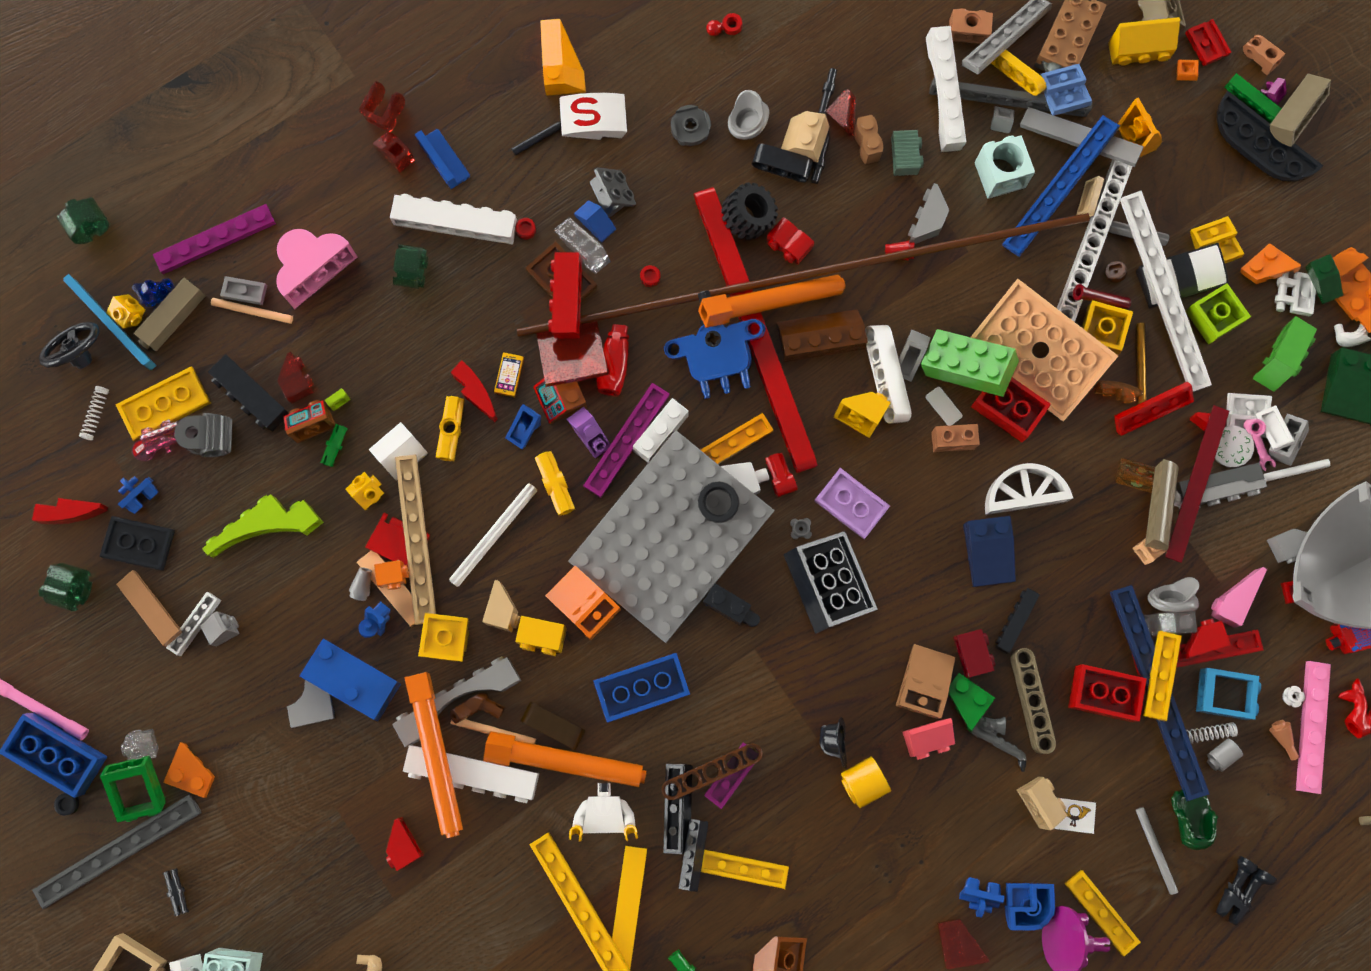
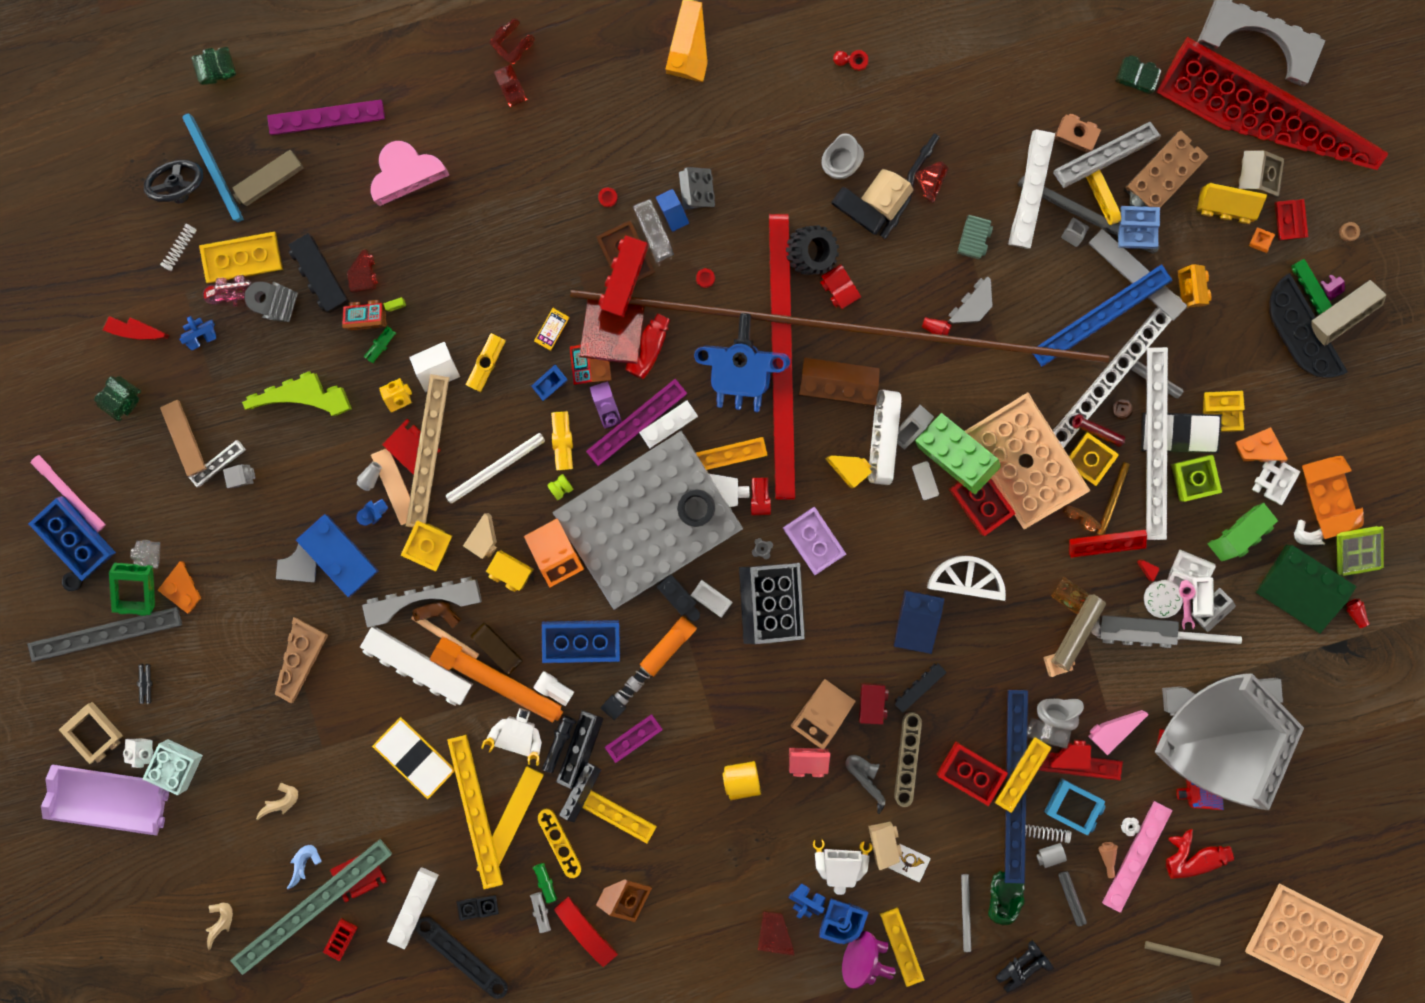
camera: 25 degrees right, 10 degrees up
(125, 311) = (230, 163): yellow brick -> none
(137, 543) = (186, 376): black tile -> none
(152, 292) = (260, 153): clear blue hips -> none
(243, 290) = (339, 176): light grey plate -> none
(252, 310) = (341, 196): light nougat bar -> none
(341, 800) = (299, 658): none -> medium nougat wing
(391, 574) = (397, 478): orange brick -> none
(402, 847) = (341, 708): red slope -> none
(409, 266) = (492, 203): clear green brick -> none
(422, 699) = (390, 641): orange brick -> none
(443, 157) = (553, 105): blue panel -> none
(453, 219) = (545, 169): white brick -> none
(474, 390) = (517, 335): red slope -> none
(498, 877) = (414, 758): none -> white slope
(537, 138) = (656, 111): black bar -> none
(565, 535) = (560, 487): none -> lime wheel
(593, 115) = (701, 110): white slope -> none
(624, 748) = (549, 686): none -> white piece
(653, 798) = (561, 734): none -> black pin
(688, 136) = (780, 155): dark grey plate -> none
(690, 919) = (561, 842): none -> yellow beam
(720, 309) = (756, 337): orange brick -> none
(723, 691) = (650, 666): none -> piece
(723, 771) = (608, 736): reddish brown beam -> none
(765, 598) = (711, 598): none -> white tile
(833, 741) = (728, 737): black piece -> none
(868, 139) = (944, 209): medium nougat brick -> none
(955, 438) = (923, 513): nougat brick -> none
(969, 700) = (854, 741): green wing -> none
(997, 181) = (1044, 294): light aqua brick -> none
(1005, 843) = (842, 867): none -> white torso
(1090, 196) = (1124, 333): tan tile -> none
(1197, 484) = (1117, 622): dark red piece -> none
(1263, 53) = (1337, 247): nougat leg -> none
(1263, 796) = (1072, 898): none -> dark grey axle
(1270, 34) = (1349, 231): none -> medium nougat tile
(1325, 278) = (1303, 479): dark green slope -> none

